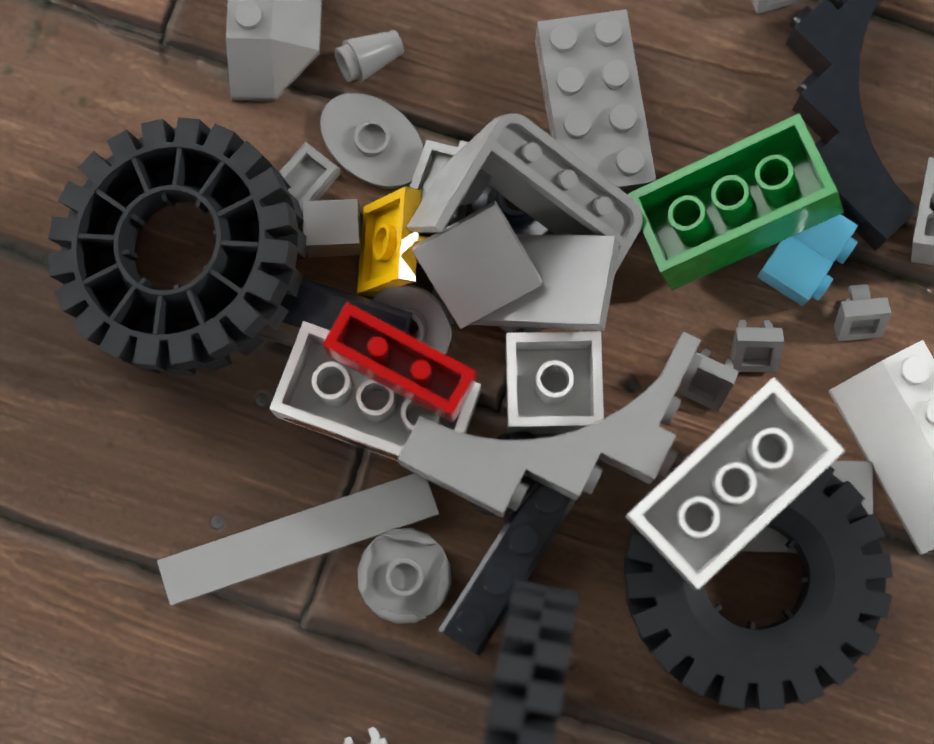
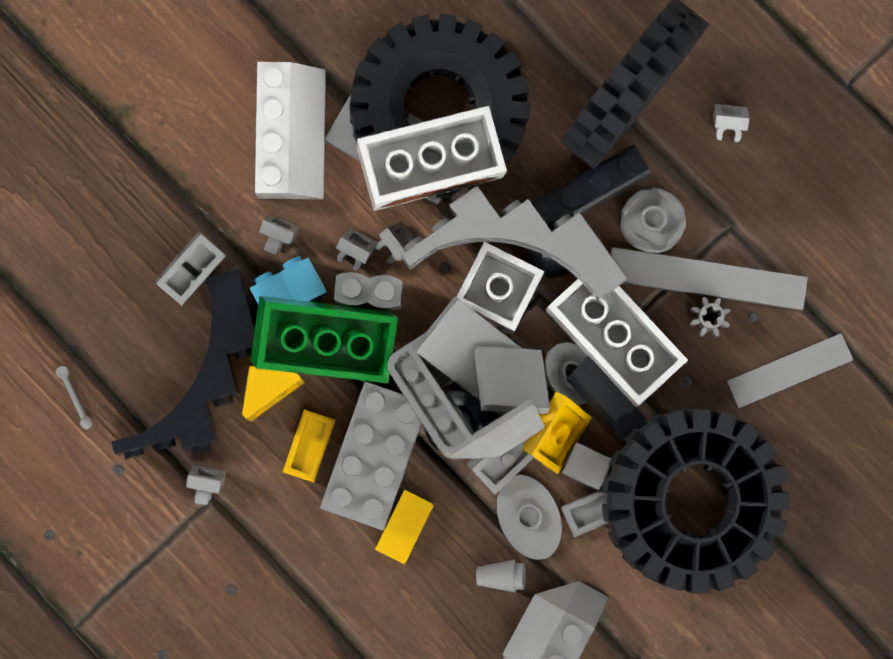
camera: 155 degrees left, 5 degrees up
(138, 479) = (790, 370): none -> light grey sticker
(258, 490) = (712, 308): none -> light grey gear
(400, 362) = (594, 338): red brick -> none
(513, 55) = (404, 527): none -> yellow tile
(677, 90) = (309, 446): none -> yellow tile
(721, 296) = (378, 292): none -> light grey brick
(774, 100) = (266, 389): none -> yellow slope

